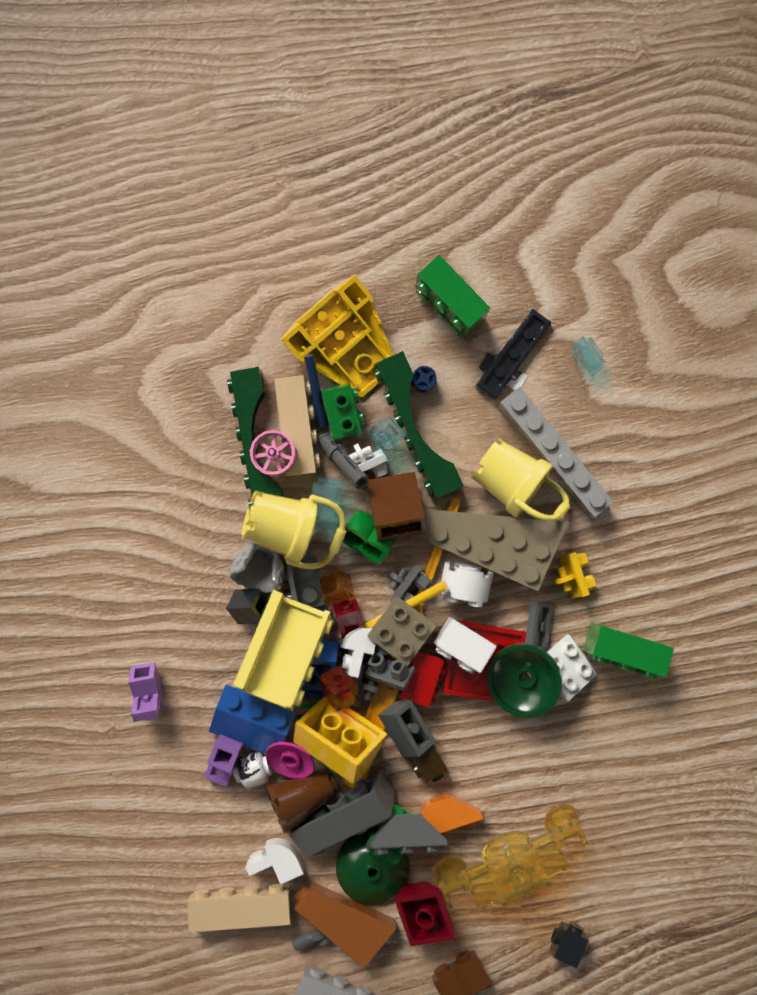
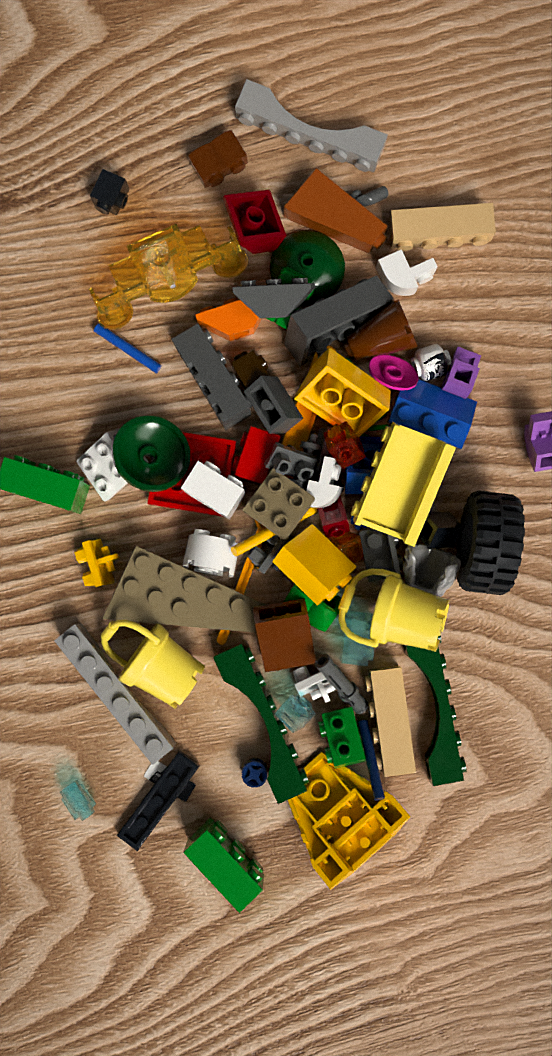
camera: 175 degrees left, 0 degrees up
(201, 593) = (490, 542): none -> black tyre
(273, 453) = (416, 692): bright pink wheel -> none
(367, 572) = (315, 565): none -> yellow brick
(466, 757) = (212, 376): none -> dark grey wedge
(539, 624) = (135, 511): dark grey tile -> none
(548, 785) = (128, 348): none -> blue bar

